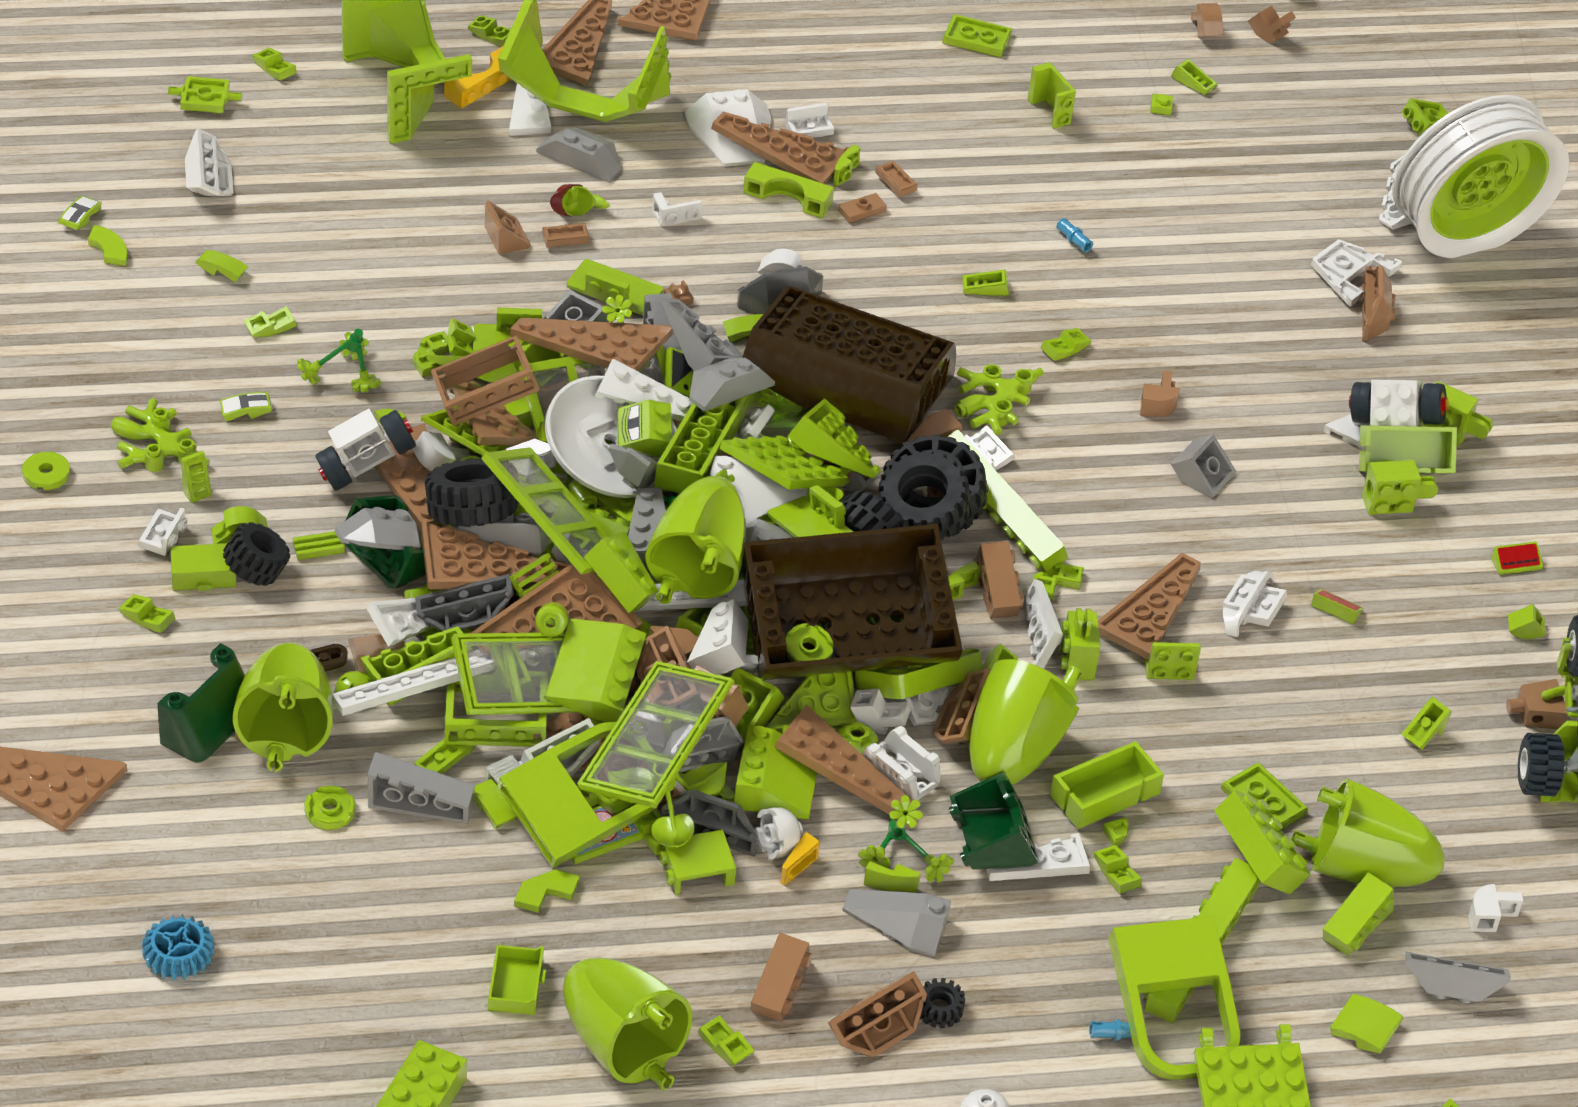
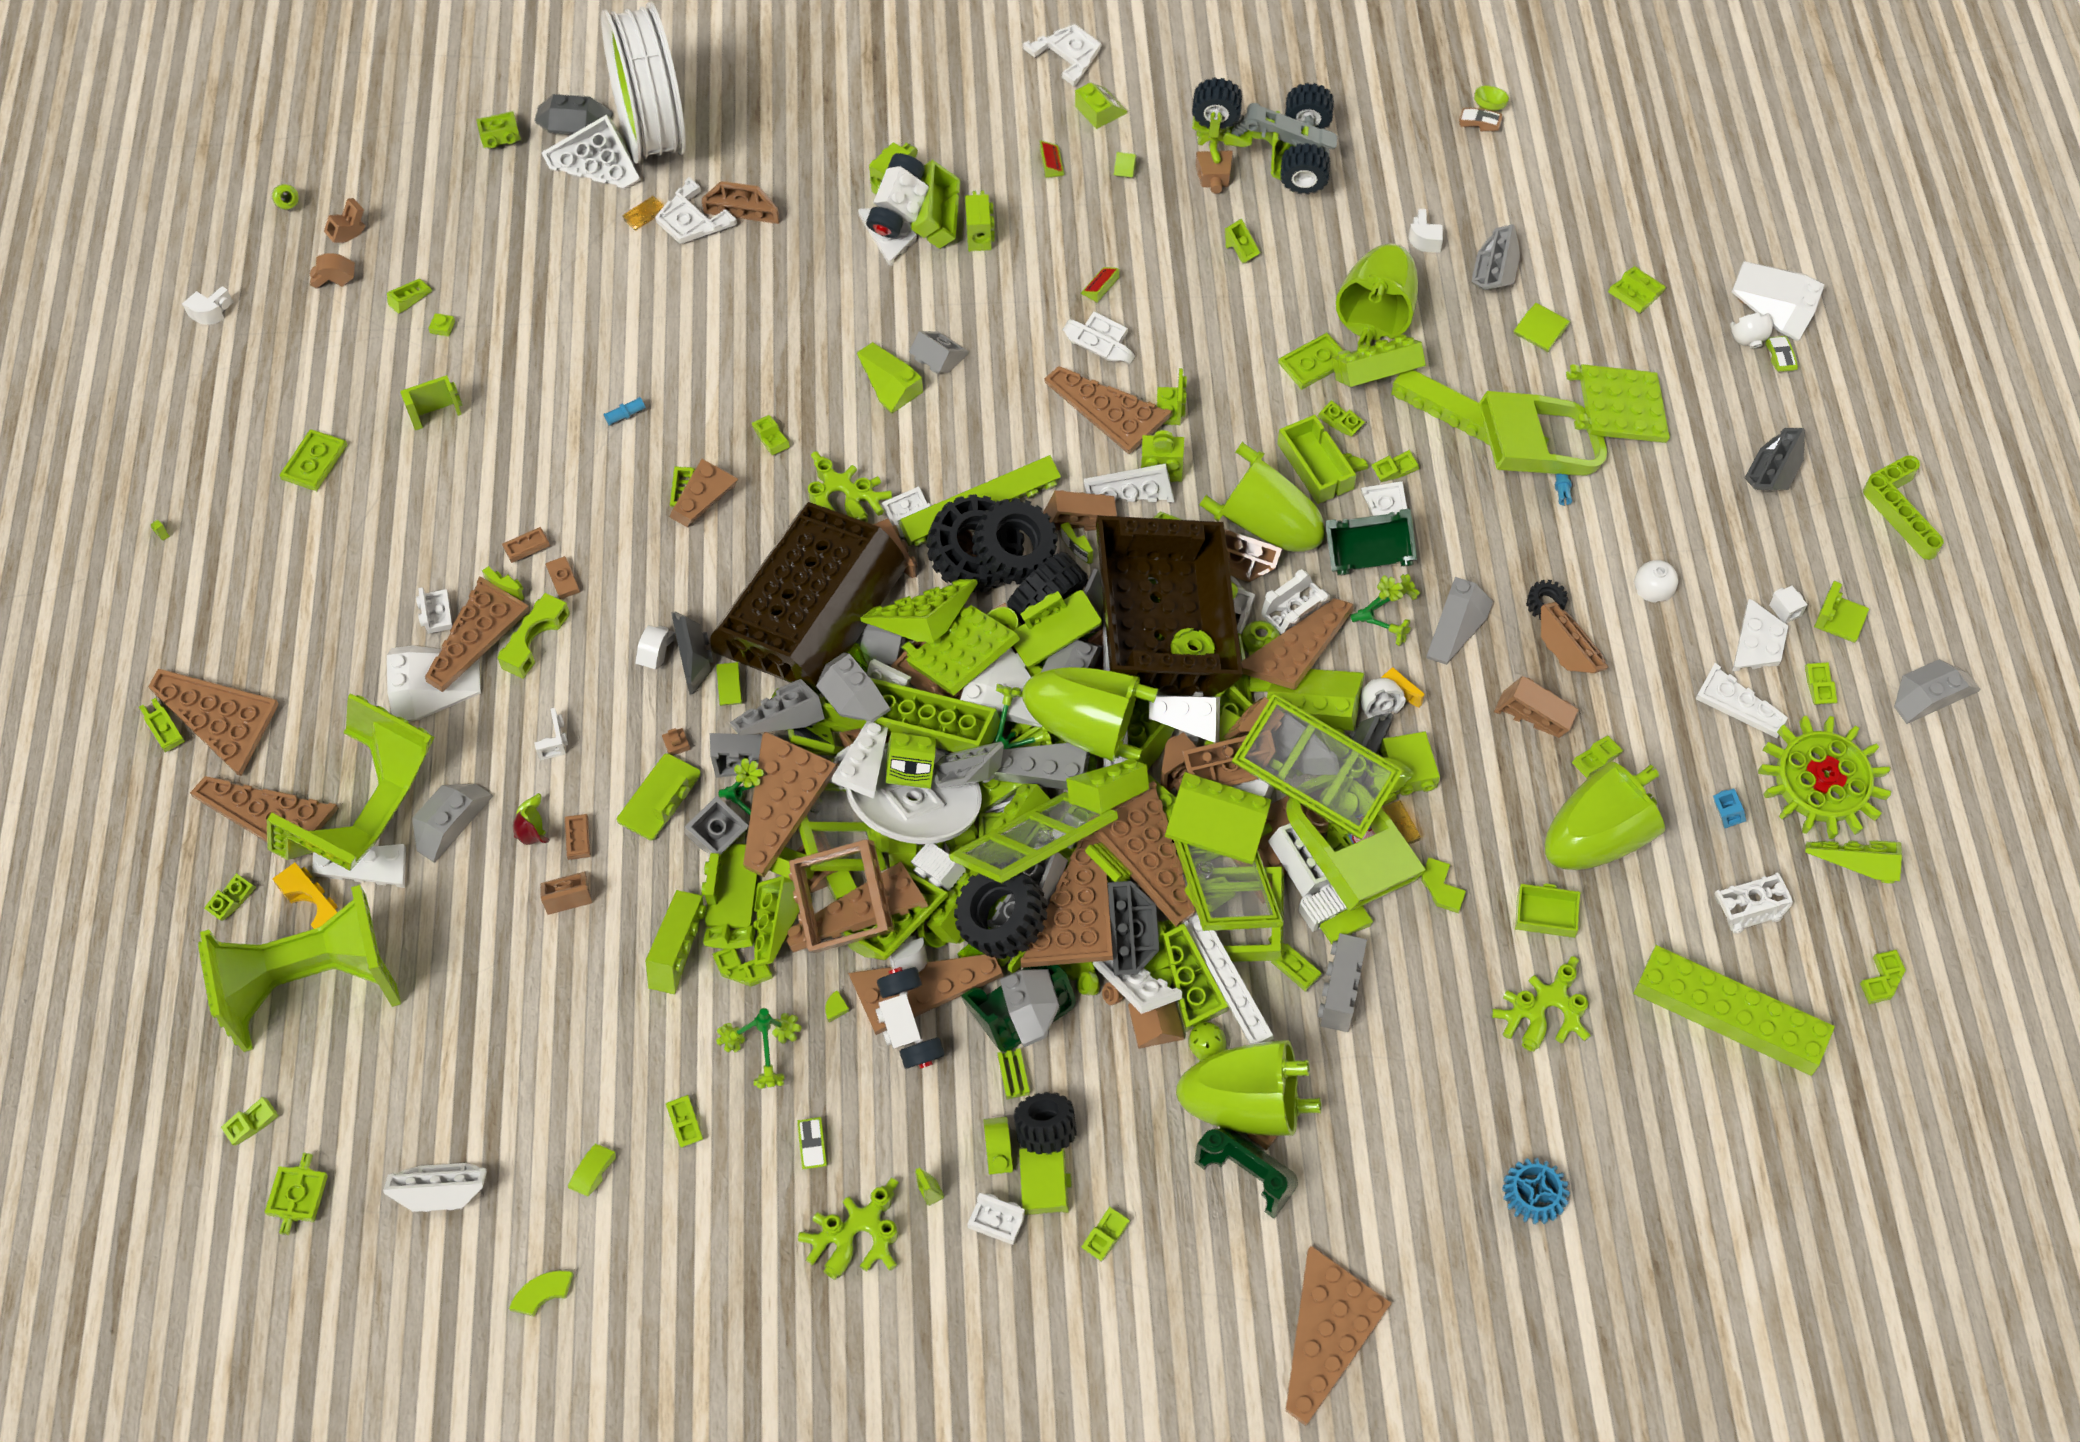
camera: 80 degrees left, 15 degrees up
(46, 461) = (886, 1333): lime tile -> none
(79, 212) = (485, 1325): slope -> none
(325, 818) = (1353, 1076): lime tile -> none
(331, 656) = (1170, 1068): dark brown plate -> none
(396, 960) = (1535, 1007): none -> lime plant
(449, 297) = (673, 941): none -> lime wedge
(552, 619) = (1171, 847): lime head -> none
(620, 853) = (1403, 822): none -> clear yellow plate
(897, 880) = (1418, 620): lime slope -> none
(974, 287) = (701, 492): none -> medium nougat wedge
(1060, 575) = (1069, 481): lime tile -> none
(1159, 399) = (850, 369): medium nougat brick -> none
(1160, 434) = (890, 377): none -> lime wedge
(1180, 819) = (1340, 420): none -> lime slope
(1340, 230) = (643, 213): none -> clear yellow plate
(1359, 914) = (1444, 312): lime wedge -> none

